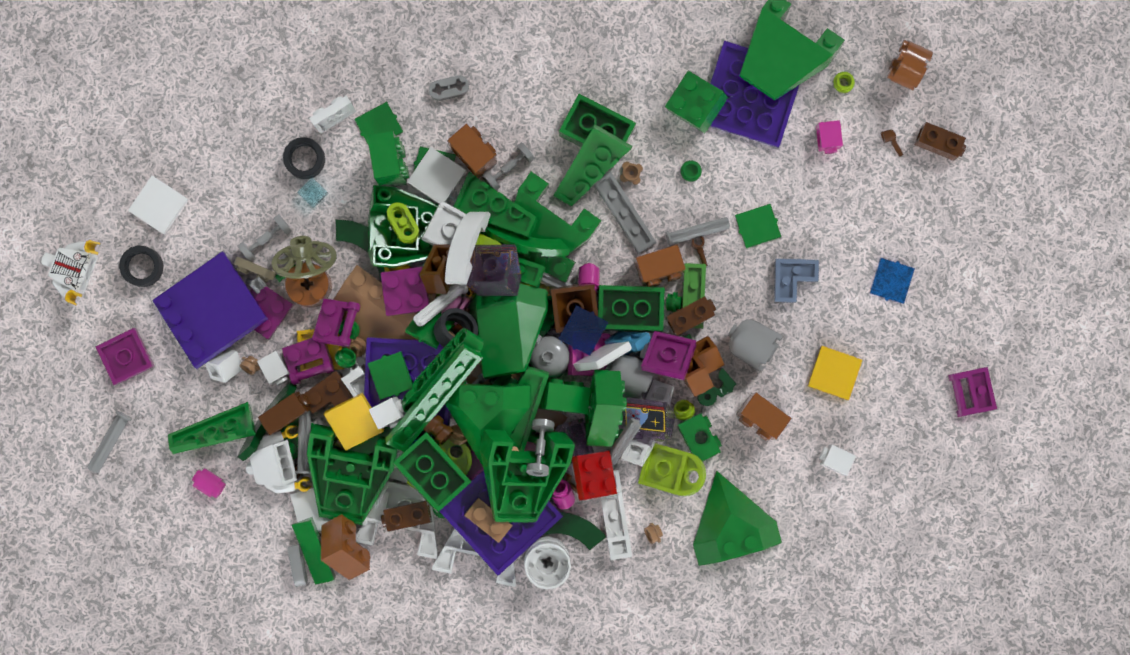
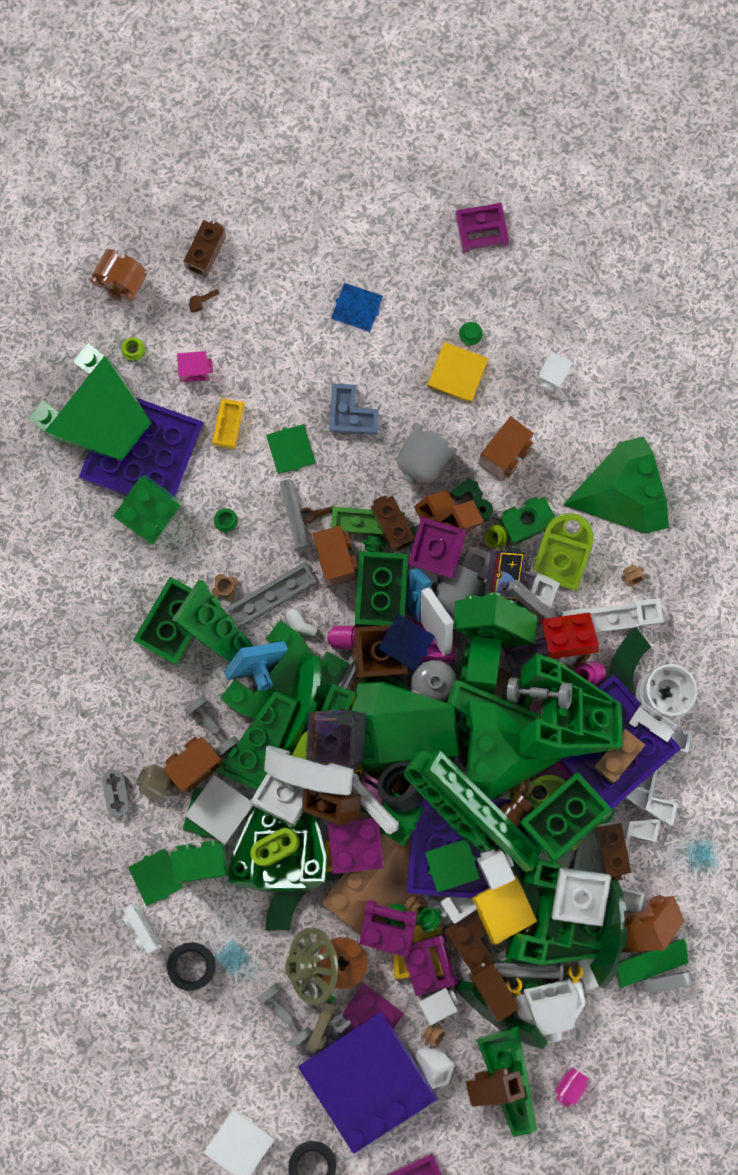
camera: 90 degrees left, 5 degrees down
(205, 417) = (495, 1088): none -> reddish brown brick
(335, 517) = (614, 937): none -> dark green tile
(365, 487) = (581, 897): none -> white tile
(408, 595) = (700, 853): none -> clear light blue plate
(456, 118) = (155, 782): none -> dark tan head
(516, 553) = (655, 726): none -> white piece
(561, 201) = (256, 662): none -> dark azure tile
(599, 237) = (298, 624): none -> white arm
(778, 169) = (228, 423): none -> yellow plate
(871, 383) = (470, 333): none -> green plate

